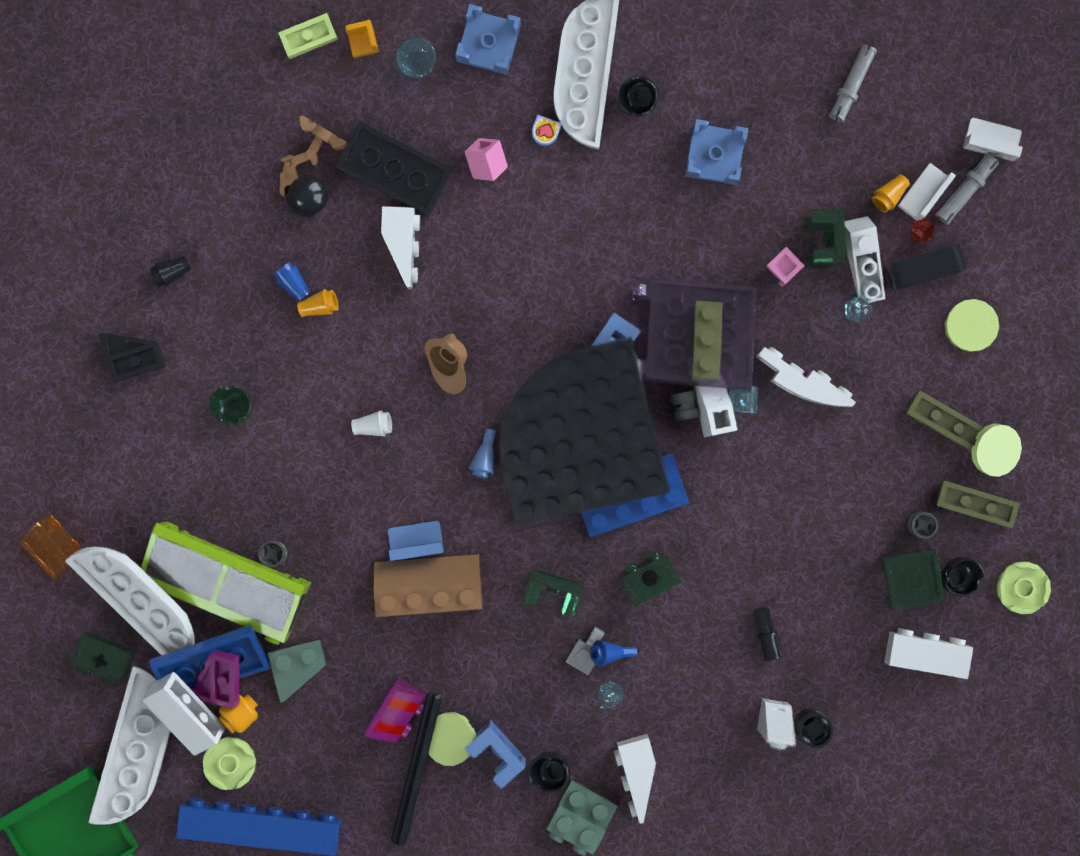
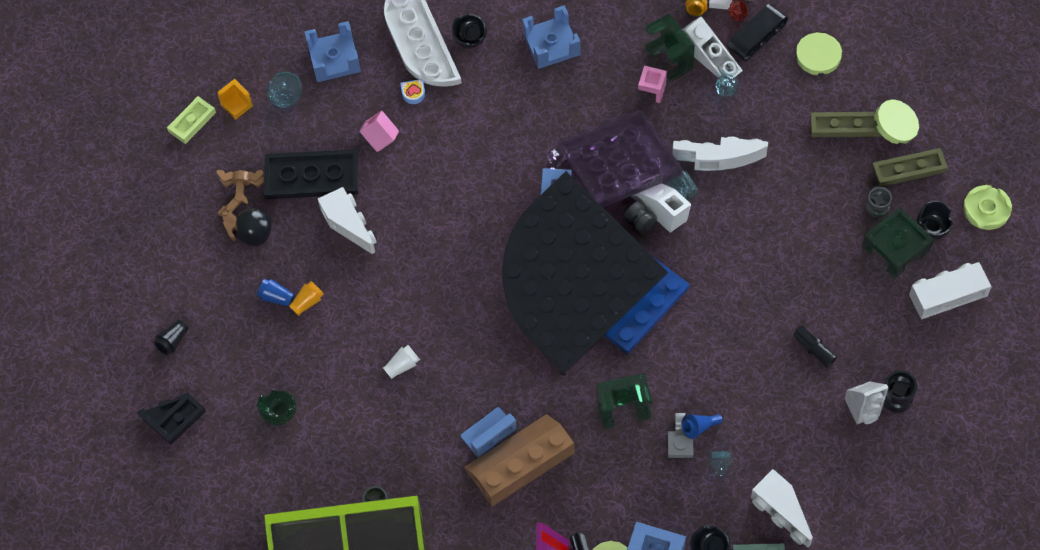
camera: 25 degrees left, 25 degrees down
(446, 362) = (434, 284): medium nougat piece -> none
(483, 461) = (507, 342): medium blue cone -> none
(665, 578) = (692, 367): clear green brick -> none
(707, 341) = (627, 156): olive plate -> none

